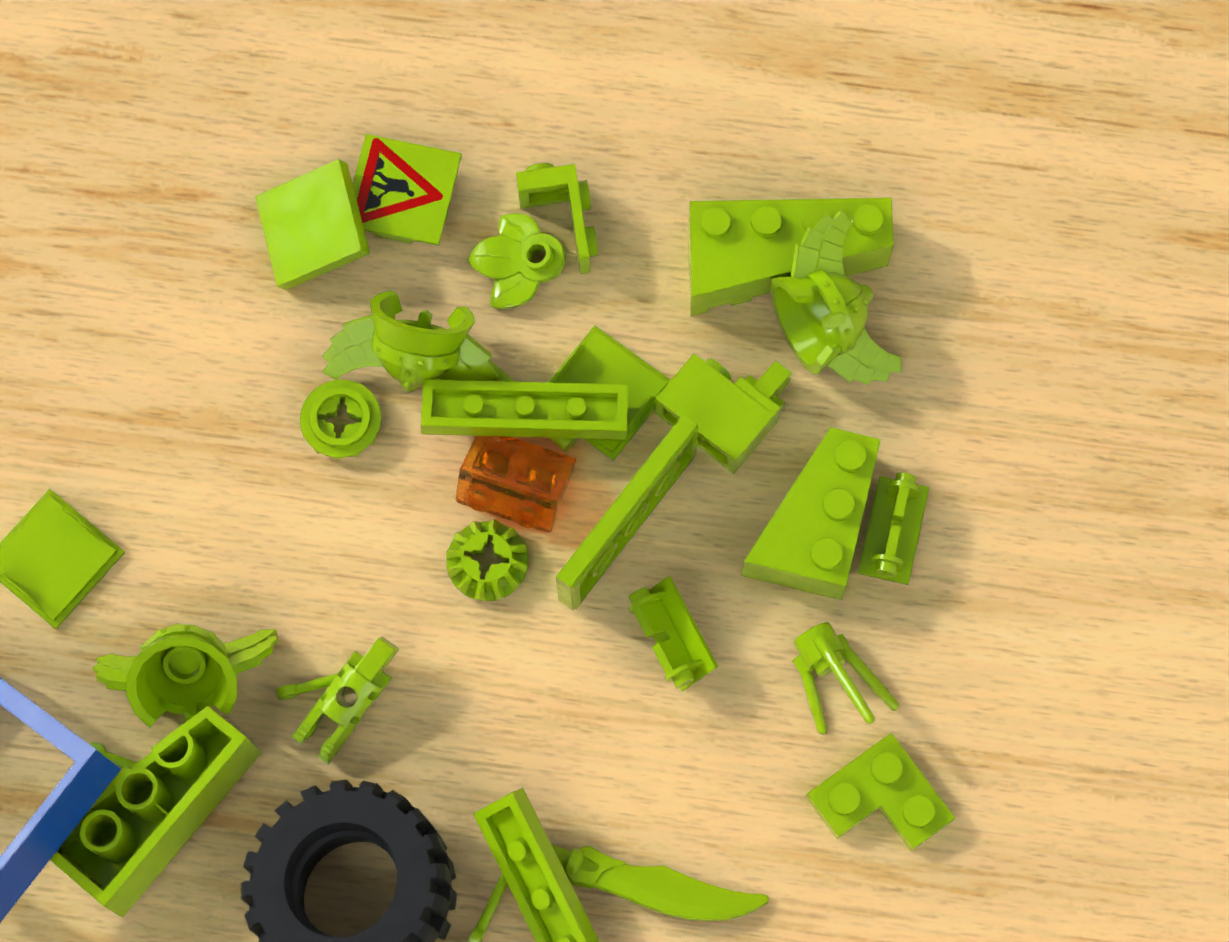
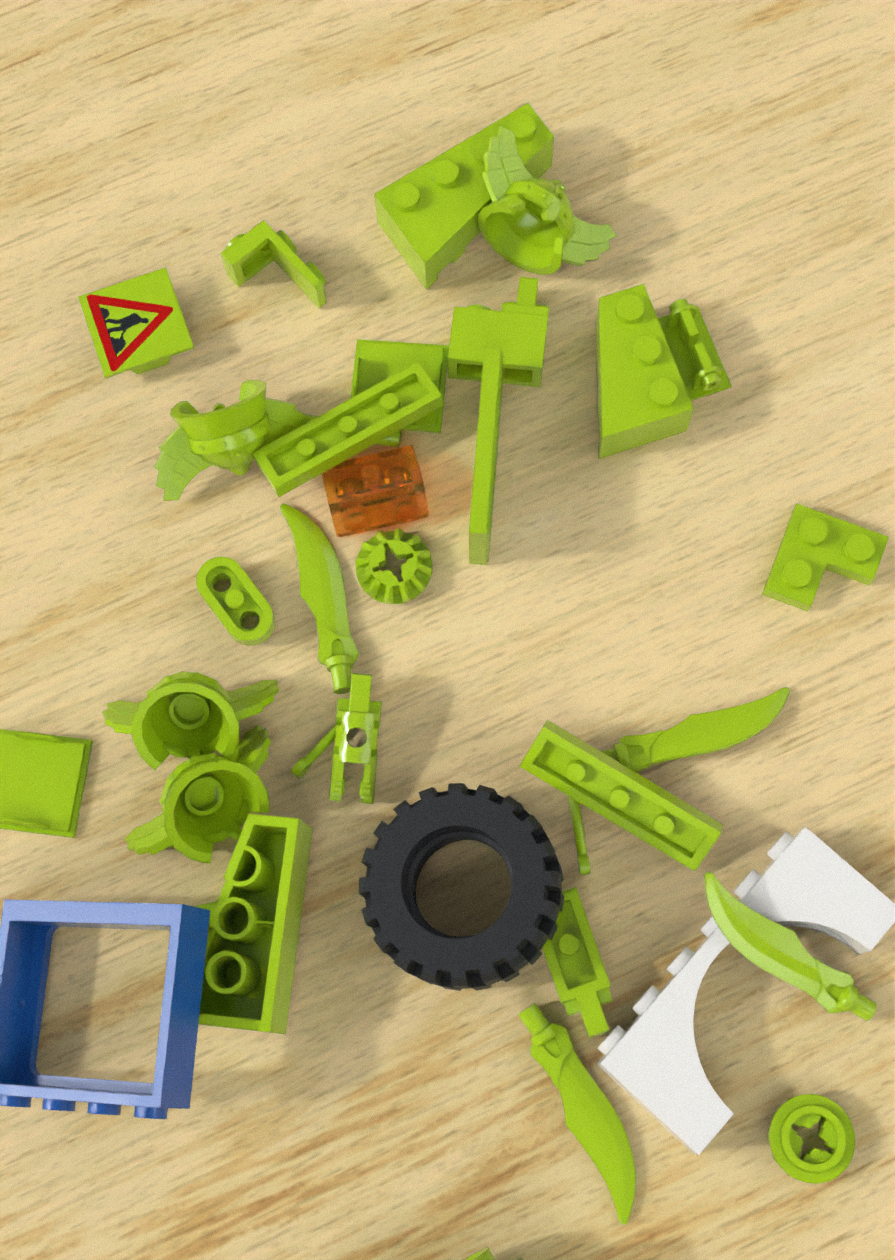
camera: 30 degrees left, 0 degrees up
(215, 585) = (188, 716): none -> lime helmet
(312, 224) = (80, 390): lime tile -> none
(325, 403) = (212, 509): lime gear -> none
(325, 507) = (237, 602): none -> lime plate
(409, 547) = (325, 595): none -> lime sword
(510, 262) = (259, 329): lime plate -> none
(676, 635) = (580, 530): lime hinge -> none
(825, 653) = (704, 474): lime plant -> none

